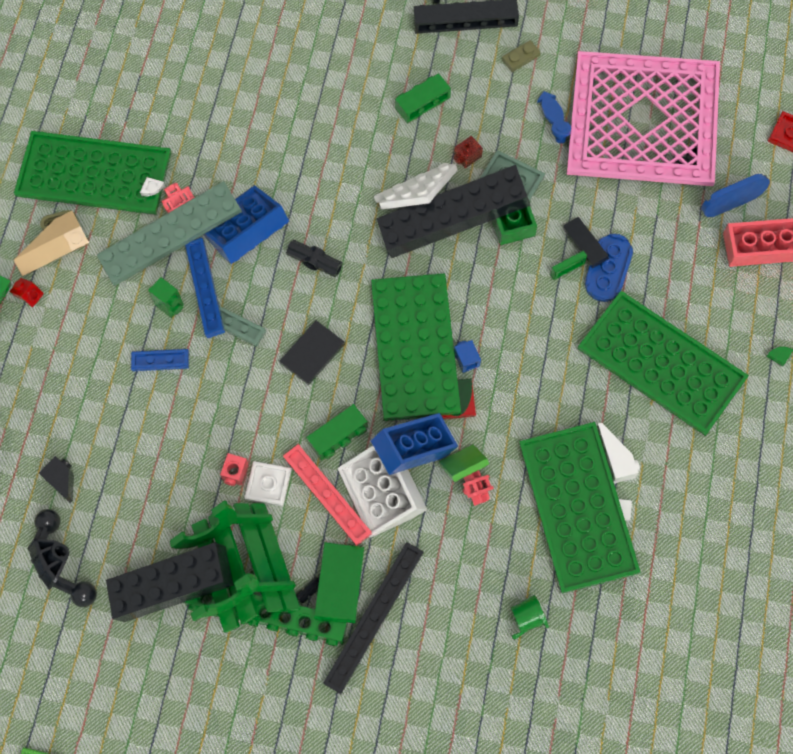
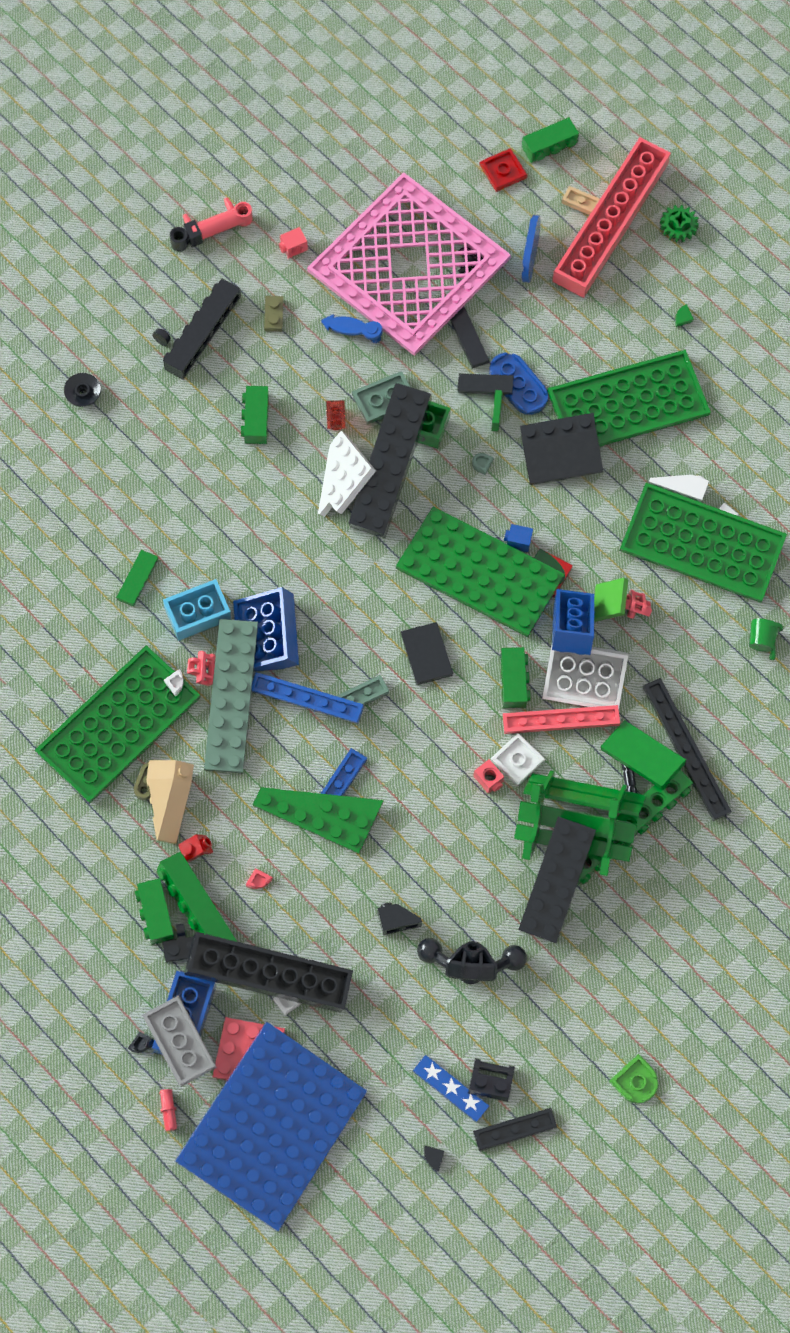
camera: 60 degrees left, 0 degrees up
(30, 354) = (258, 880): none -> coral tile
(117, 371) = (332, 817): none -> green wing
(166, 297) = (296, 733): green brick -> none
(223, 162) = (196, 609): none -> medium azure brick
(224, 108) = (137, 578): none -> green tile
(314, 258) = (342, 596): black piece -> none
(514, 285) = (482, 462): none -> sand green tile
(572, 335) = (561, 448): none -> black slope
(591, 28) = (293, 242): none -> coral brick
(617, 204) = (469, 339): none -> black tile

